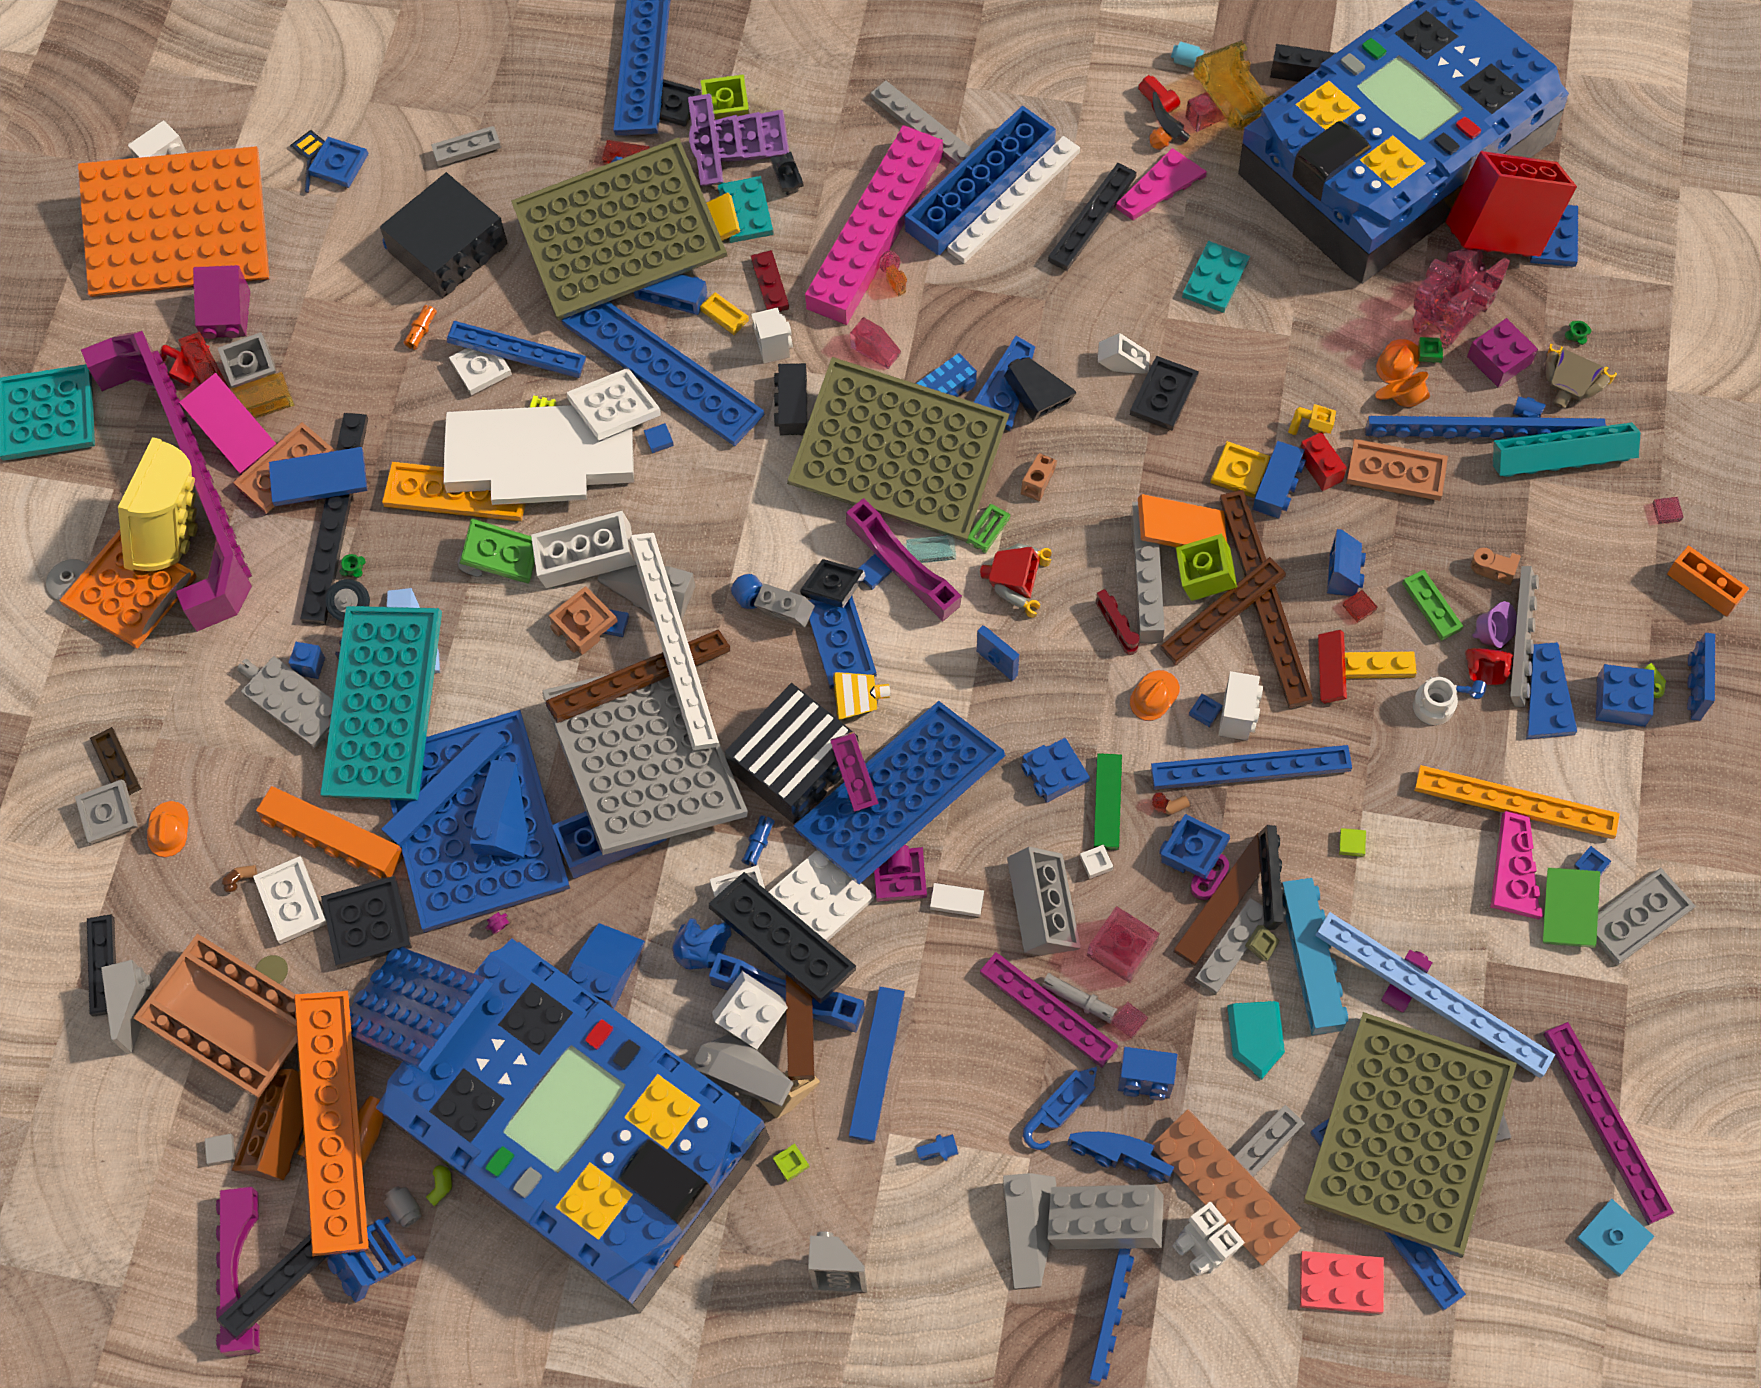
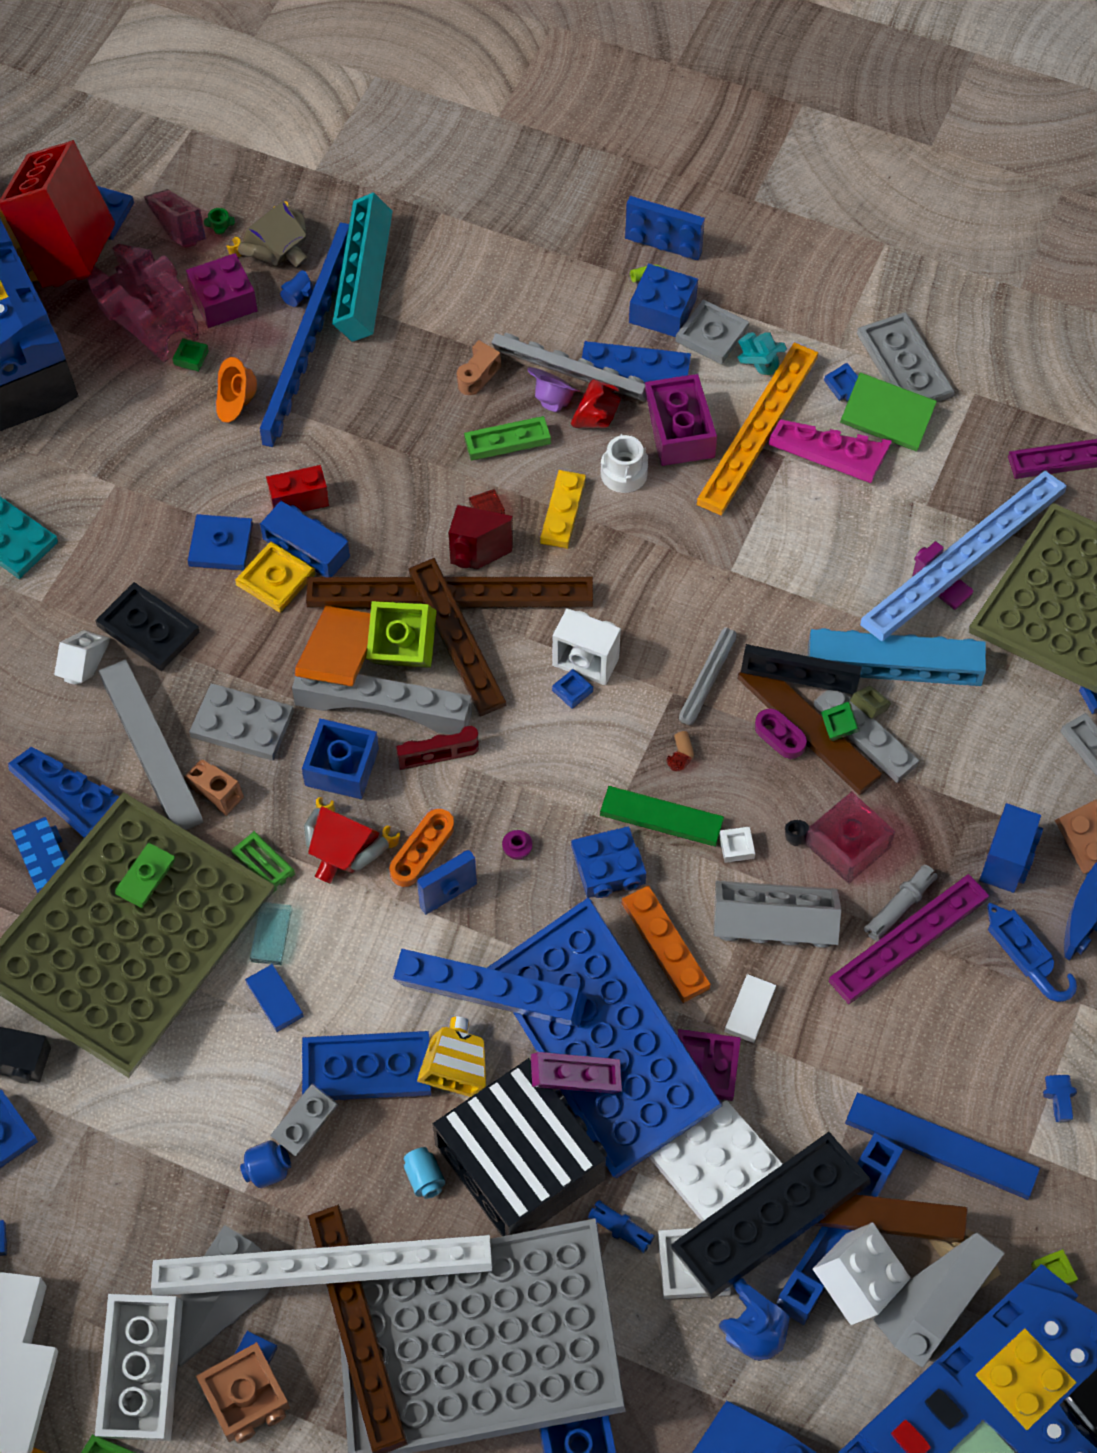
camera: 80 degrees left, 5 degrees down
(765, 695) = (423, 1173): none -> medium azure brick
(832, 583) = (287, 1056): black tile -> none
(915, 703) = (490, 987): none -> blue brick
(928, 586) = (241, 984): magenta arch -> none
(943, 446) = (145, 875): none -> bright green plate
(996, 827) = (666, 944): none -> orange plate
(1021, 625) = (423, 836): none -> orange plate
(1037, 388) = (93, 756): black slope -> none
(1051, 706) = (517, 852): none -> magenta plate
(1060, 424) = (150, 745): none -> light grey beam
(1084, 554) = (340, 758): none -> blue brick
(1102, 481) = (241, 721): none -> light grey plate
(1118, 900) = (798, 826): none -> black hinge
(1129, 1020) = (936, 856): clear pink tile -> none
(1154, 695) = (538, 736): orange piece -> none
(1193, 846) = (746, 737): blue plate -> none
(1230, 917) = (840, 721): none -> green plate
(1249, 810) = (707, 676): none -> light grey axle
(1251, 767) = (657, 662): blue plate -> none
(1256, 1035) = (974, 737): teal tile -> none
(1259, 422) = (220, 542): none -> blue plate
(1316, 600) = (479, 537): none -> dark red slope
(1320, 419) = (243, 476): yellow plate -> none
(1332, 666) = (555, 549): red tile -> none
(1345, 565) = (433, 502): blue slope -> none
(1352, 842) = (768, 588): lime tile -> none
(1397, 361) = (190, 390): orange piece -> none
(1397, 469) = (330, 425): nougat plate -> none
(1476, 691) = (618, 426): blue hand -> none
(1495, 733) = (680, 420): none -> magenta slope
(1567, 298) = (178, 217): none -> clear pink slope
(1597, 786) = (761, 351): none -> teal hips
(1608, 744) = (712, 331): none -> light grey plate
(1667, 510) = (457, 208): clear pink tile -> none
(1707, 581) = (556, 194): orange brick -> none

